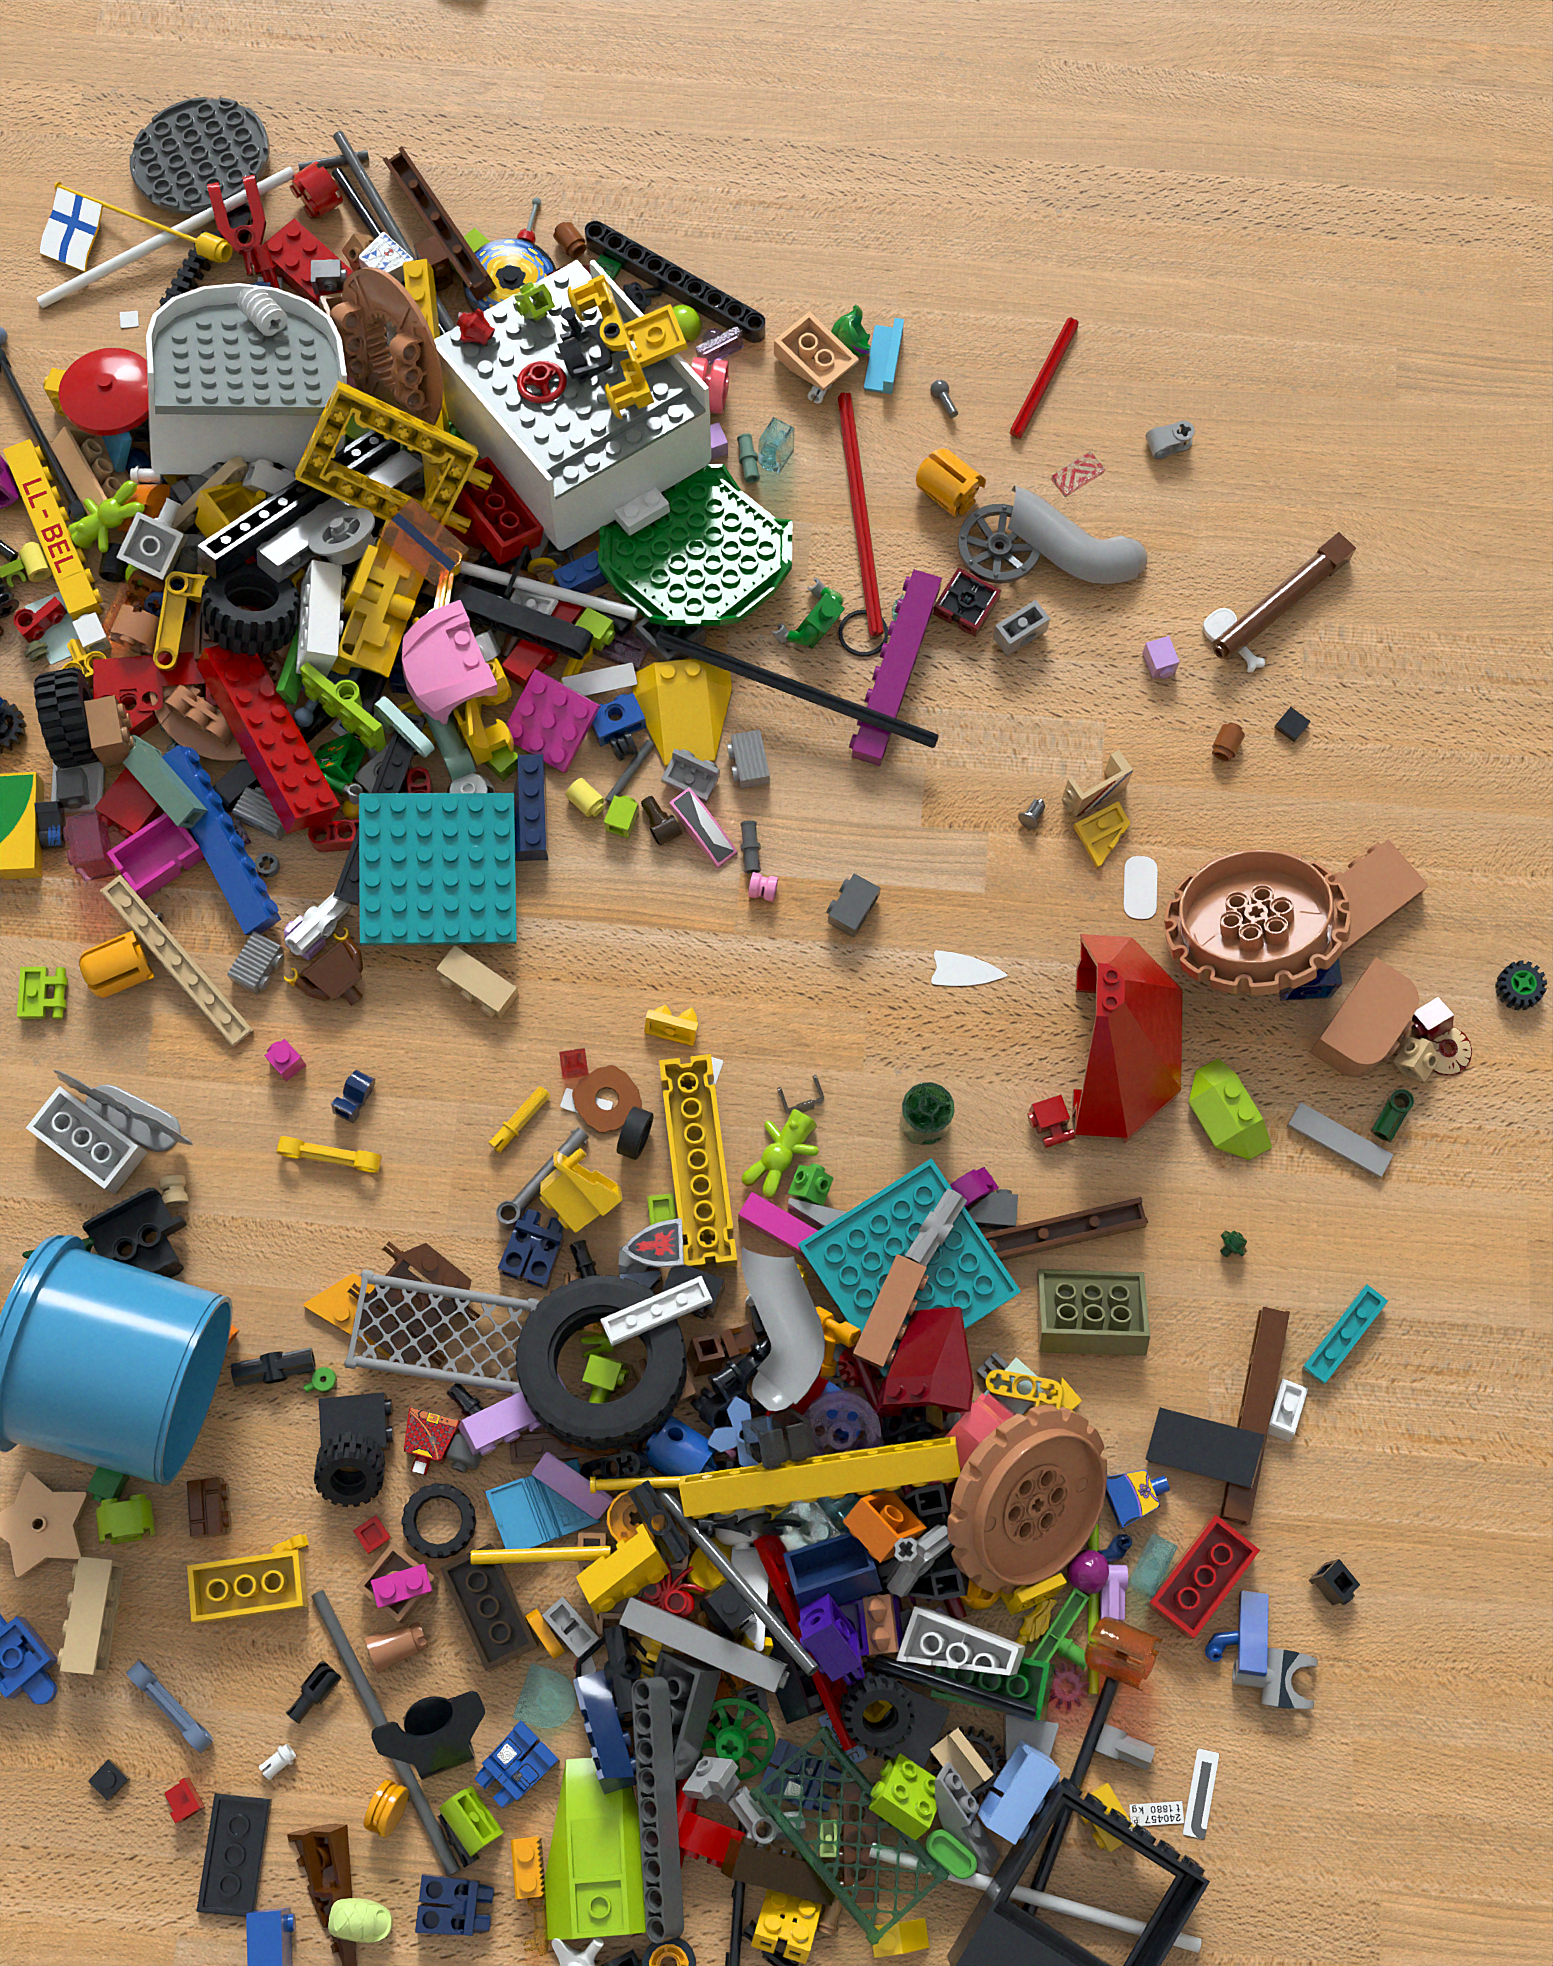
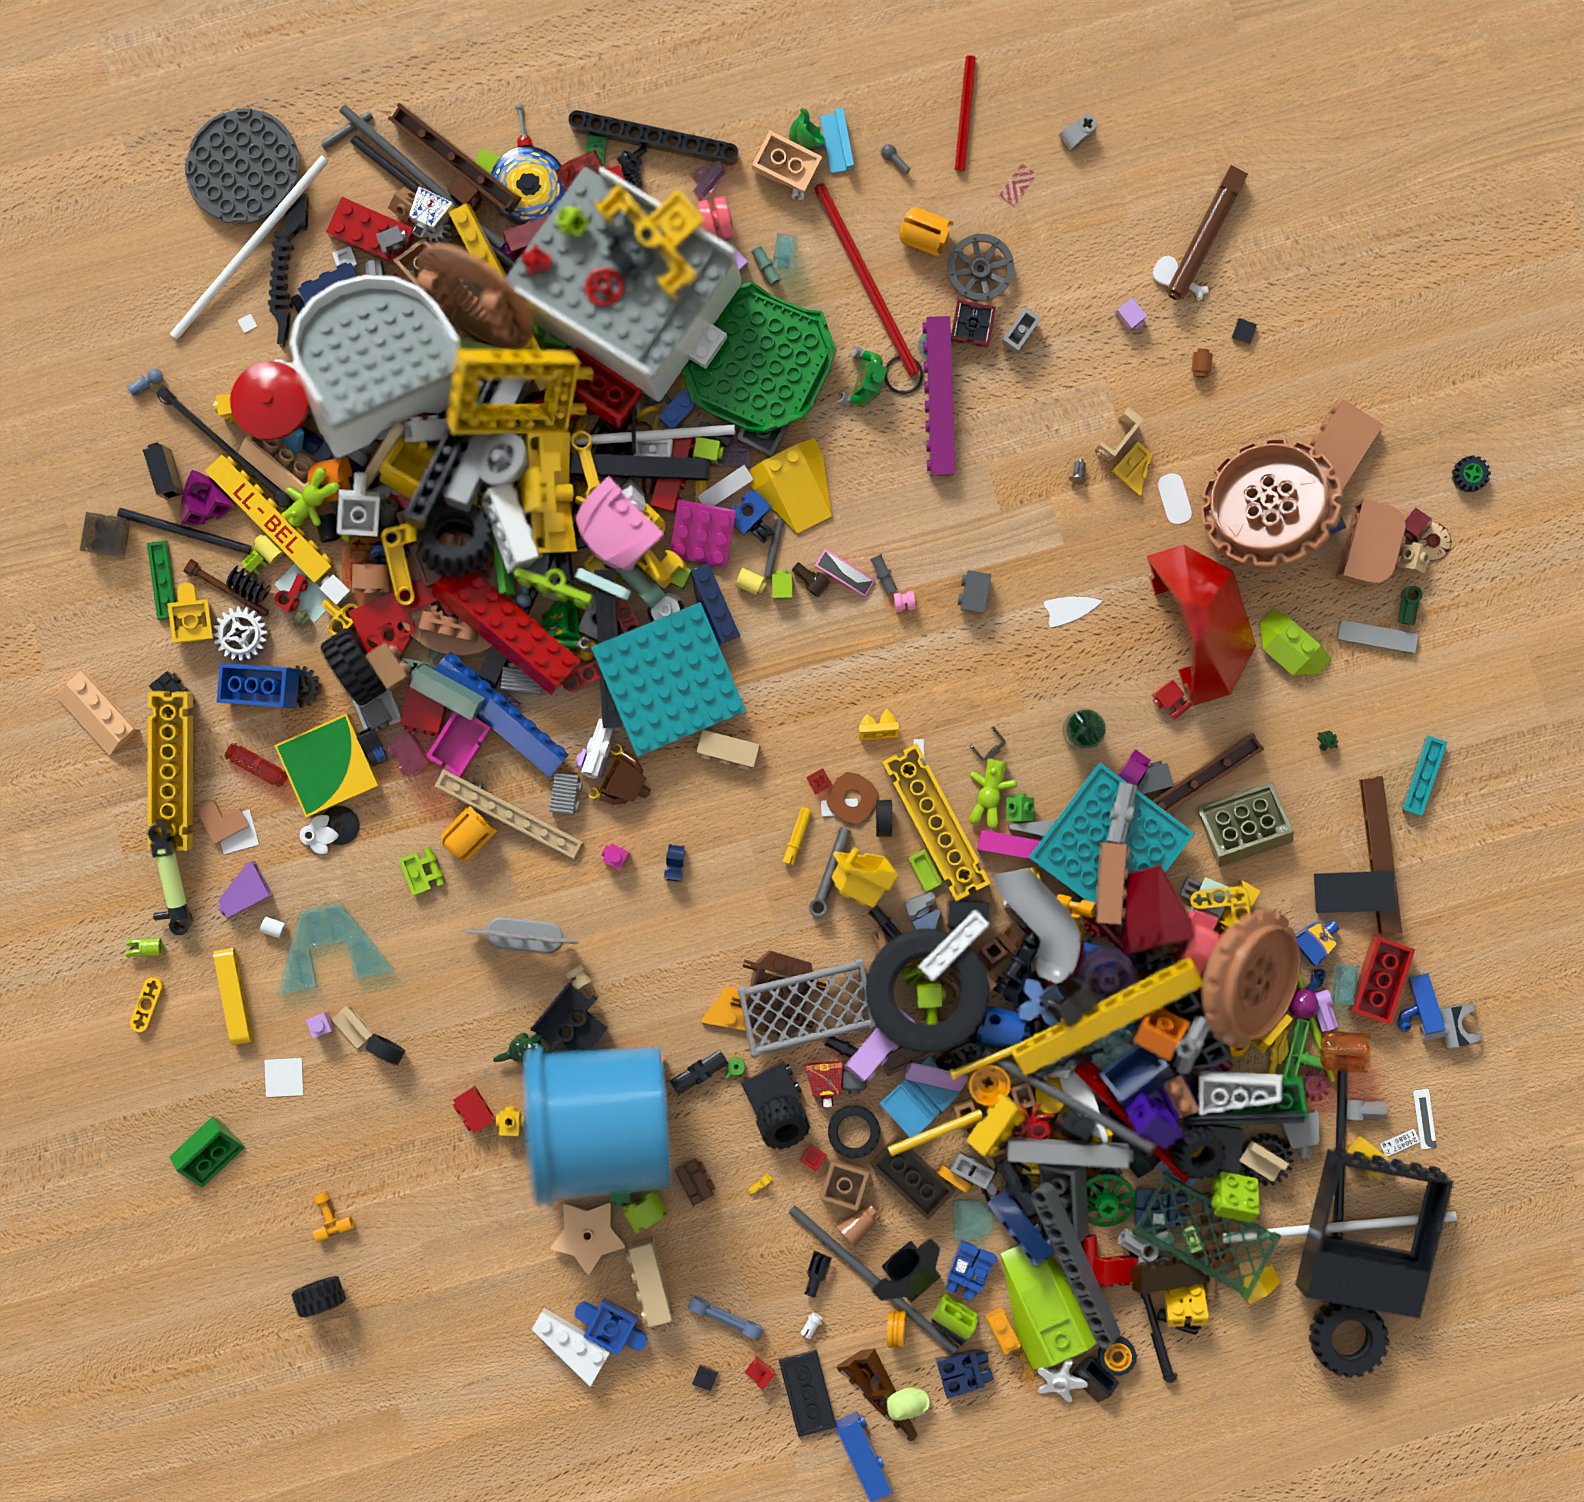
camera: 15 degrees left, 15 degrees up
(77, 221) = (172, 264): flag -> none
(86, 1140) = (502, 965): white brick -> none
(145, 475) = (321, 454): white pin -> none
(247, 1586) = (745, 1223): yellow brick -> none
(257, 229) = (300, 230): red piece -> none
(259, 862) = (546, 717): dark grey bush -> none
(262, 310) = (367, 303): white piece -> none
(266, 265) = (338, 246): red axle -> none
(298, 1149) = (675, 911): yellow piece -> none
(316, 190) = (347, 165): red brick -> none
(401, 1586) = (850, 1187): dark pink plate -> none
(423, 542) = (561, 440): clear orange tile -> none
(533, 1241) = (844, 919): dark blue hips -> none
(569, 239) = (559, 131): dark orange brick -> none
(658, 1245) = (933, 894): shield -> none
(669, 1538) = (1017, 1091): black piece -> none
(688, 321) = (673, 170): lime hair -> none
(688, 771) = (820, 536): light grey bracket -> none
(712, 1780) = (1103, 1233): light grey brick -> none
(749, 759) = (857, 507): light grey brick -> none
(797, 689) = (874, 444): black axle -> none
(951, 1854) = (1277, 1222): bright green tile -> none
(957, 1815) = (1274, 1198): light grey slope -> none
(1024, 1785) = (1312, 1157): light blue piece -> none
(1070, 546) = (1034, 251): light grey animal -> none
(1286, 1410) = (1401, 841): white slope -> none
(1335, 1582) = (1470, 949): black brick -> none

